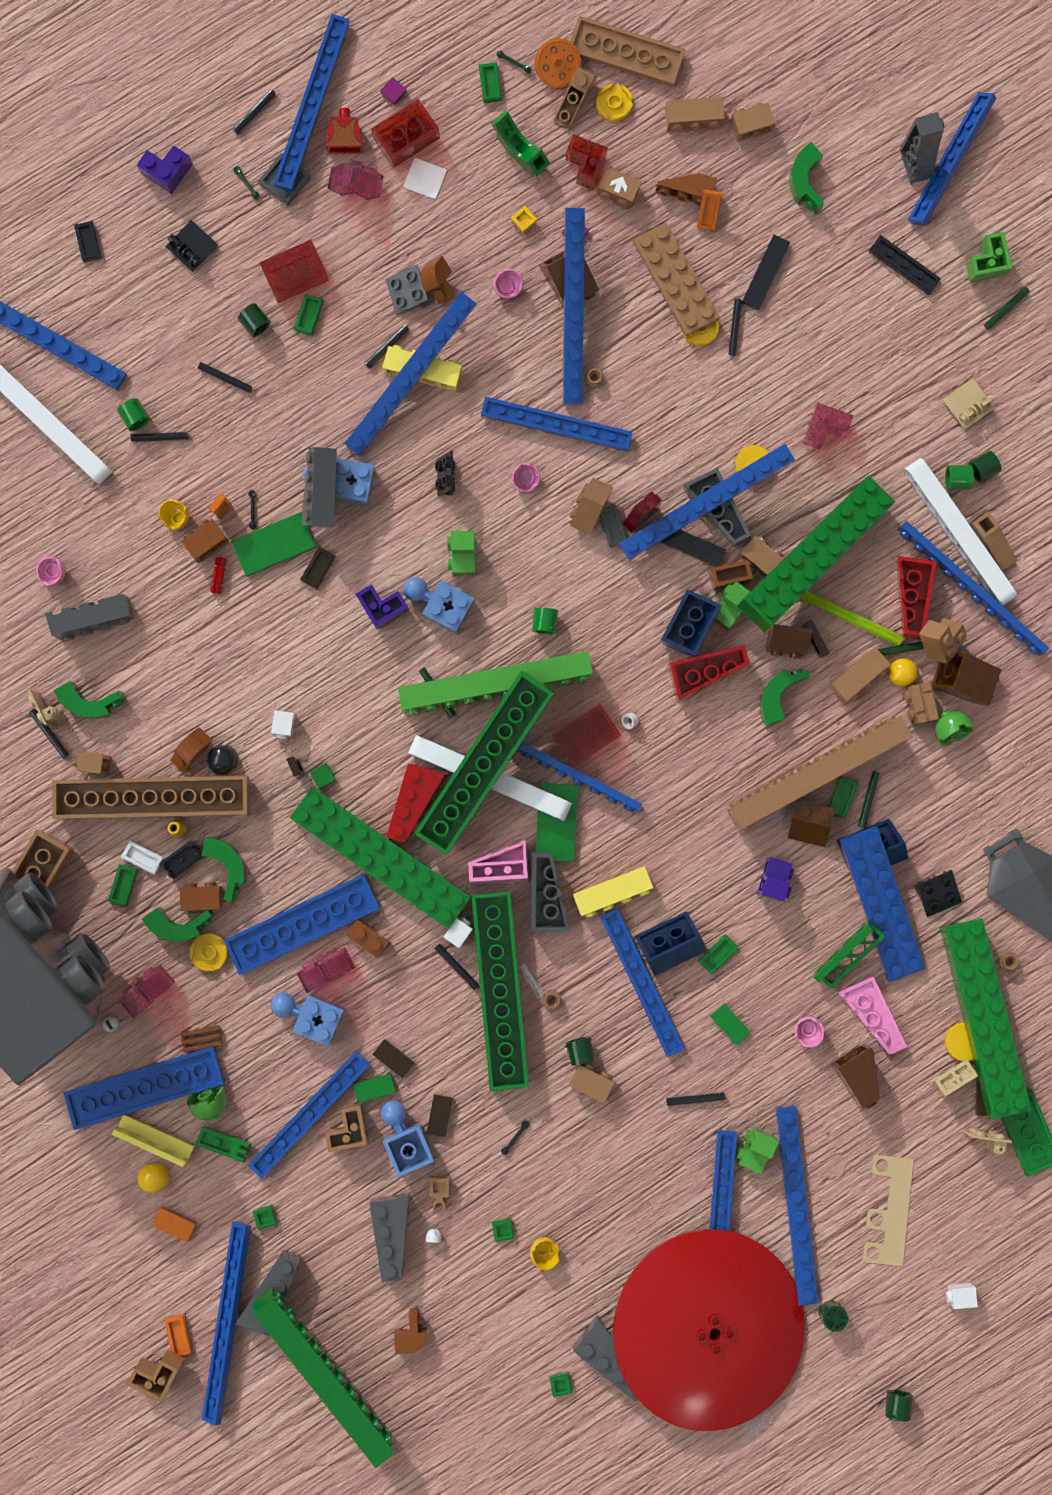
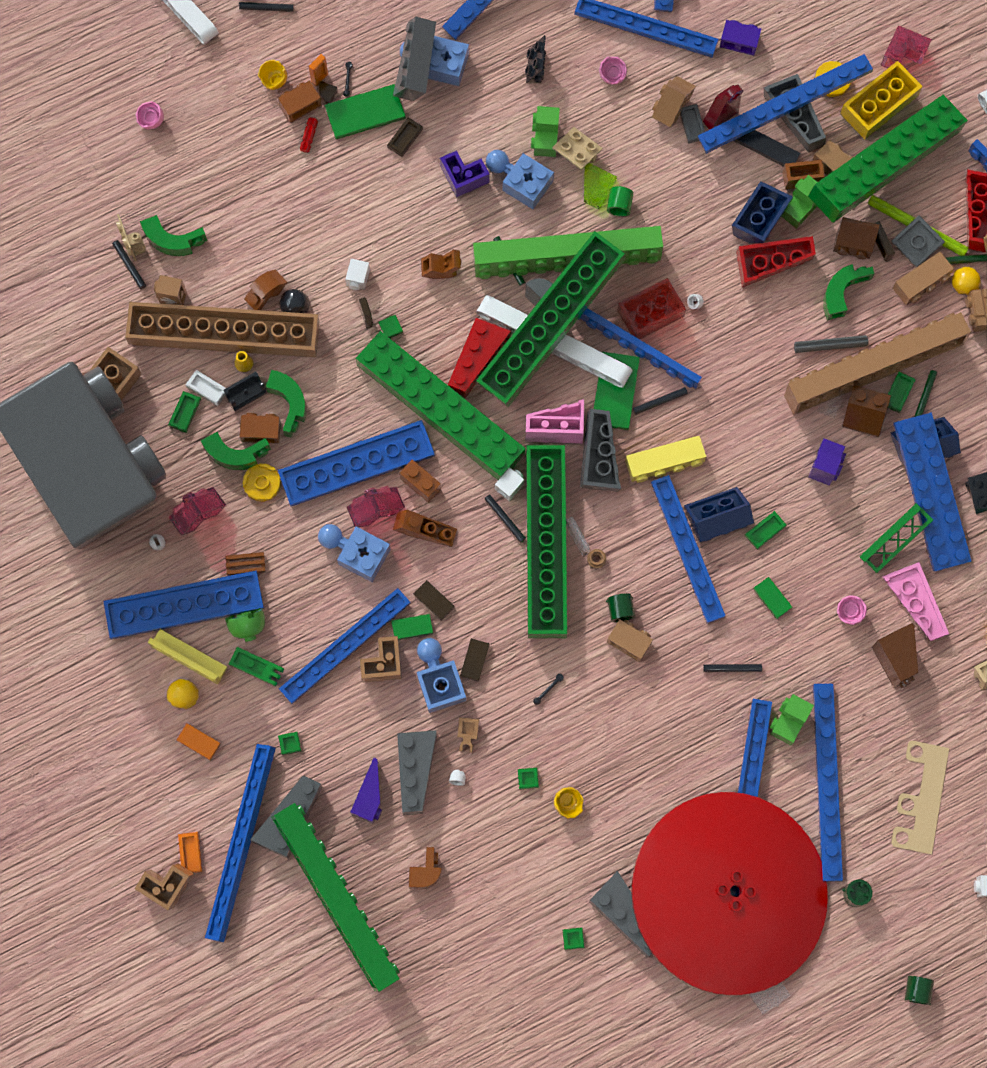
camera: 10 degrees right, 10 degrees down
(90, 617) = (182, 160): dark grey wedge -> none
(232, 526) = (327, 92): none -> dark brown tile
(348, 1266) = (368, 799): none -> dark purple slope
(367, 707) = (441, 266): none -> dark orange brick
(377, 986) = (424, 528): none -> dark orange slope
(470, 729) = (536, 289): none -> dark grey brick
(496, 567) = (577, 148): none -> tan hinge
(519, 602) = (597, 185): none -> clear neon green wing
(603, 828) = (659, 401): none -> black bar
(655, 427) = (740, 37): none -> dark purple brick
(770, 752) = (830, 344): none -> dark grey axle
(805, 485) = (881, 100): none -> yellow brick
(852, 635) = (918, 241): none -> dark grey tile

